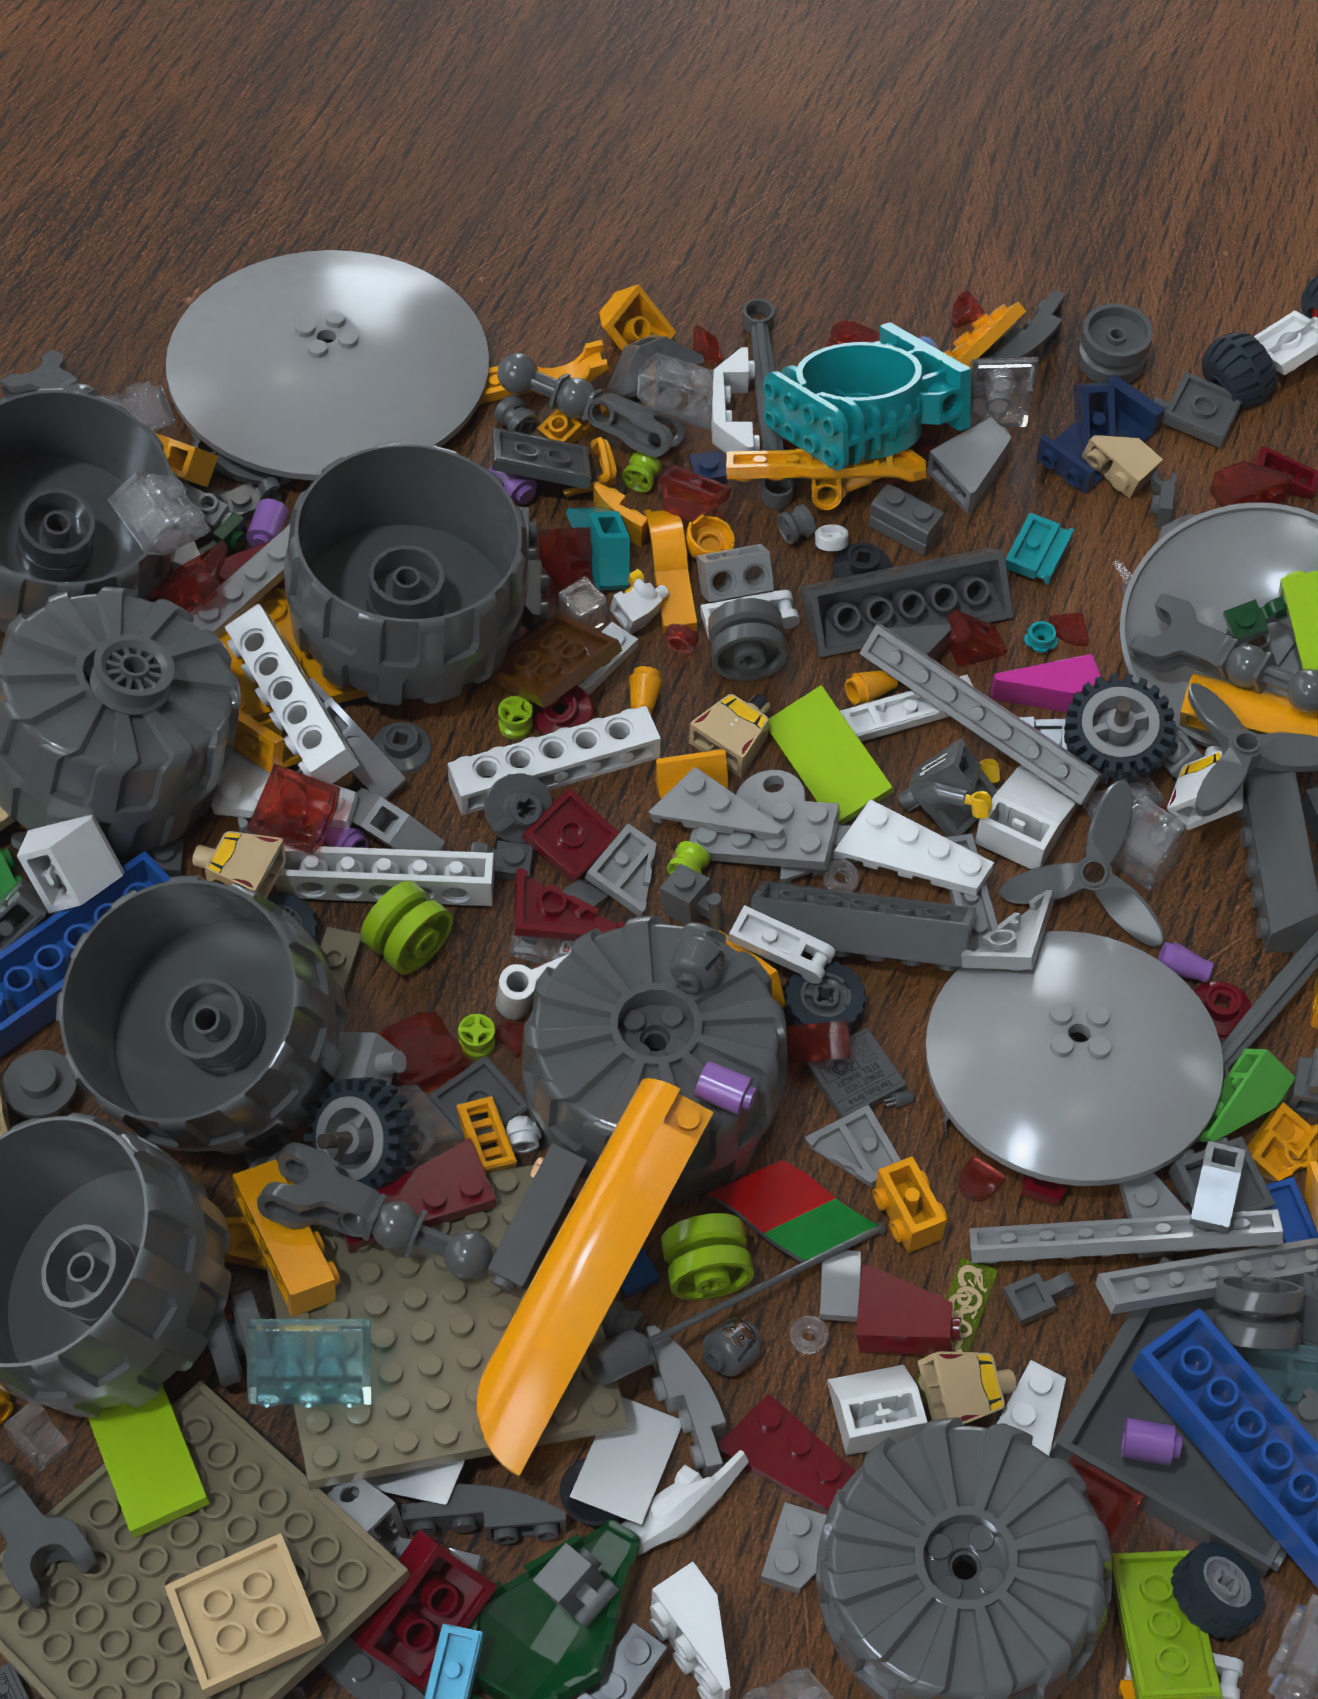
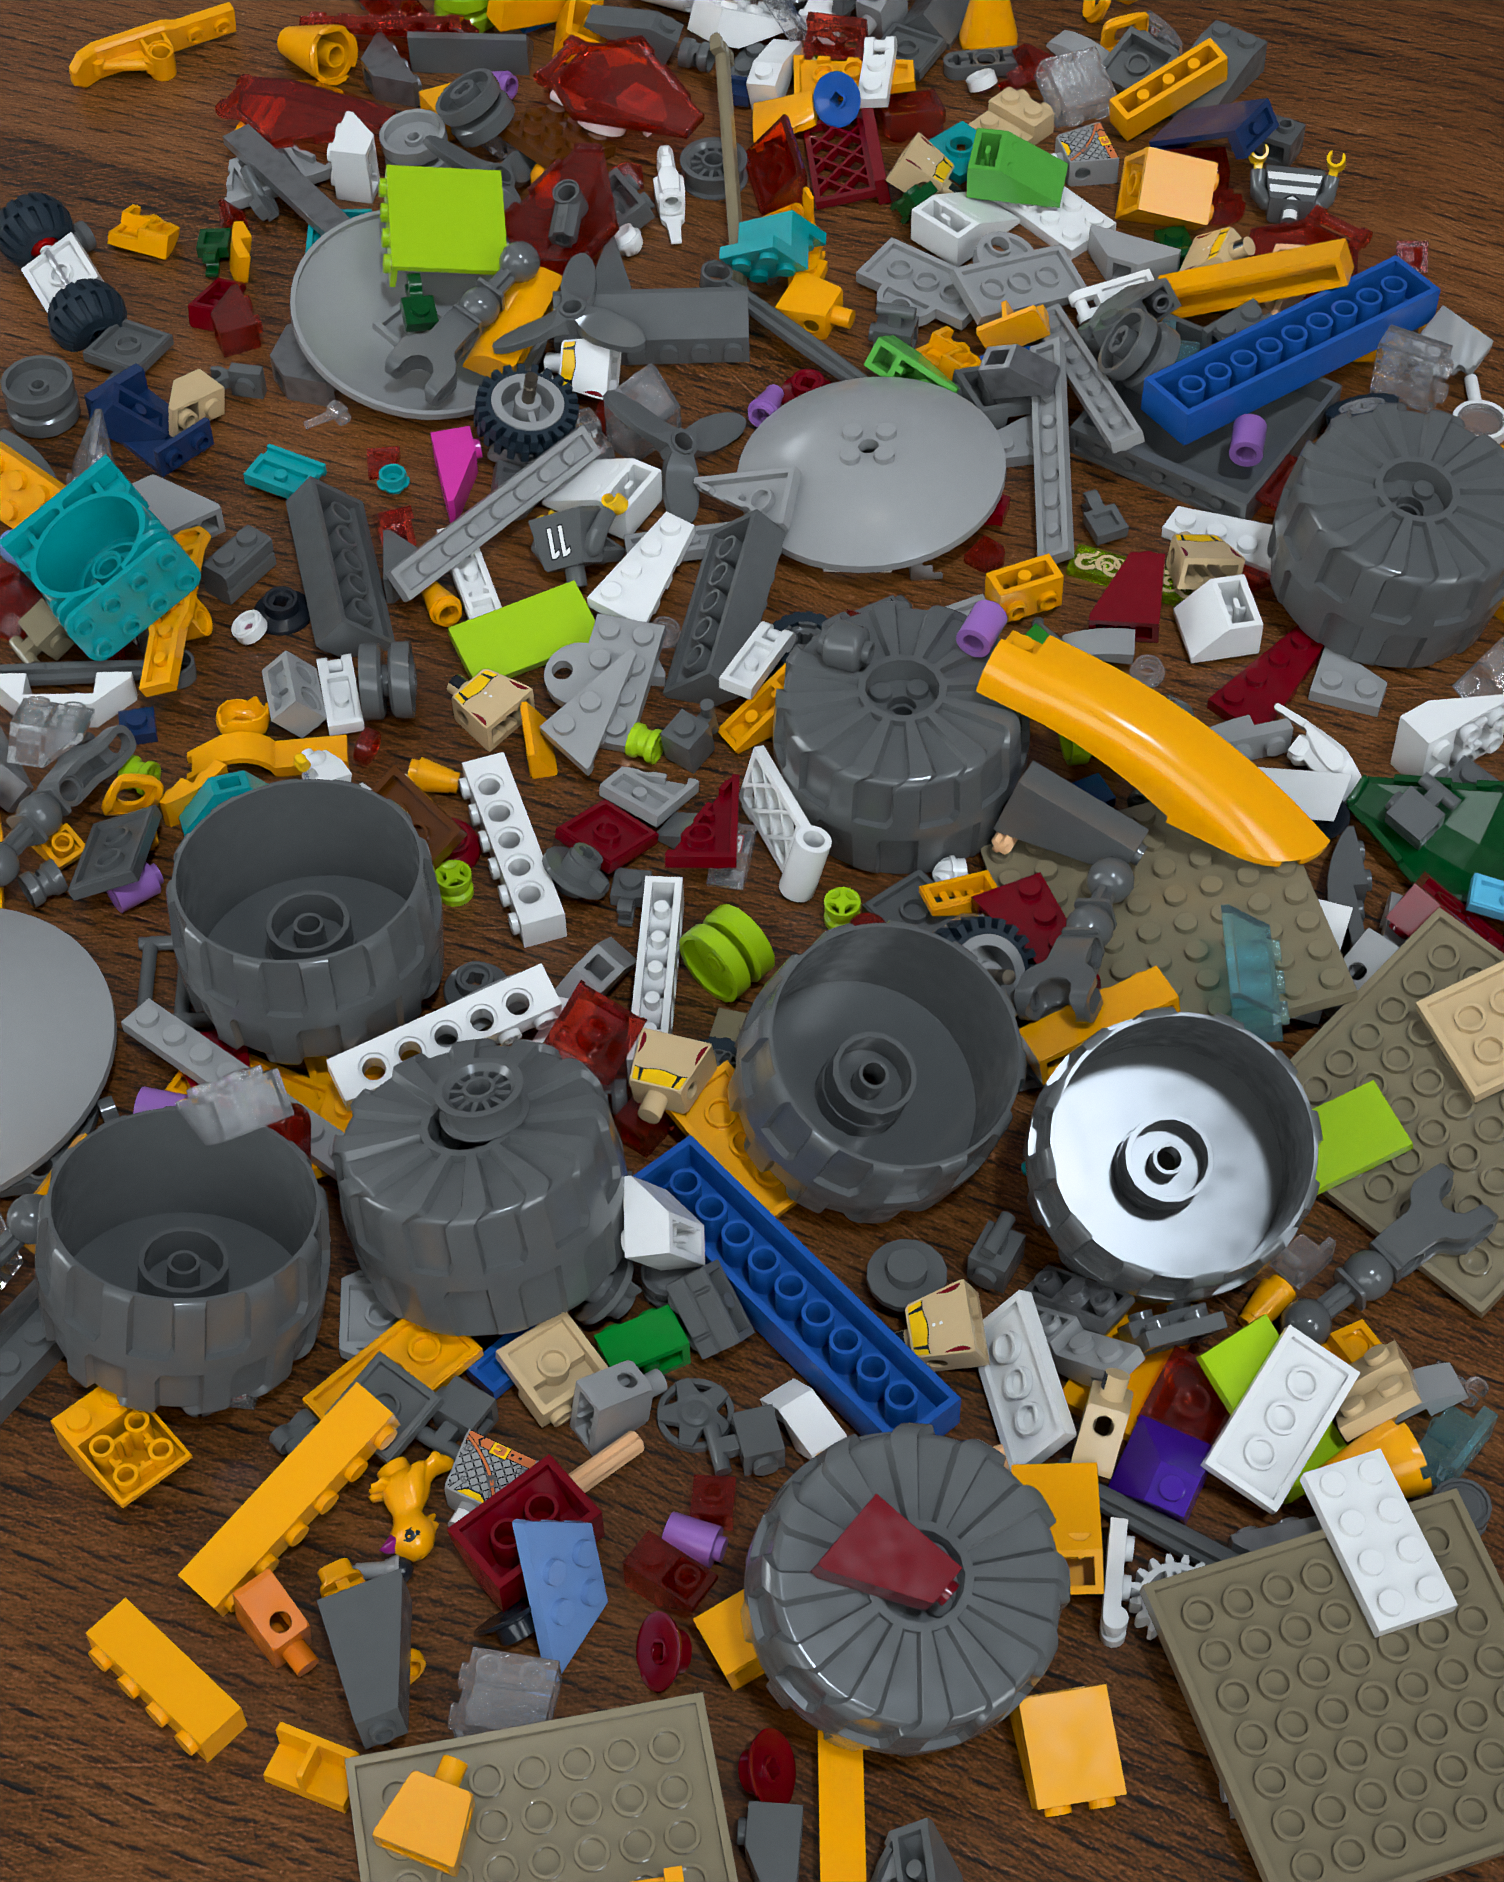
camera: 85 degrees left, 5 degrees down
(511, 1036) = (838, 876): clear red tile -> none
(690, 493) = (181, 729): clear red slope -> none
(796, 524) = (230, 651): dark grey wheel -> none

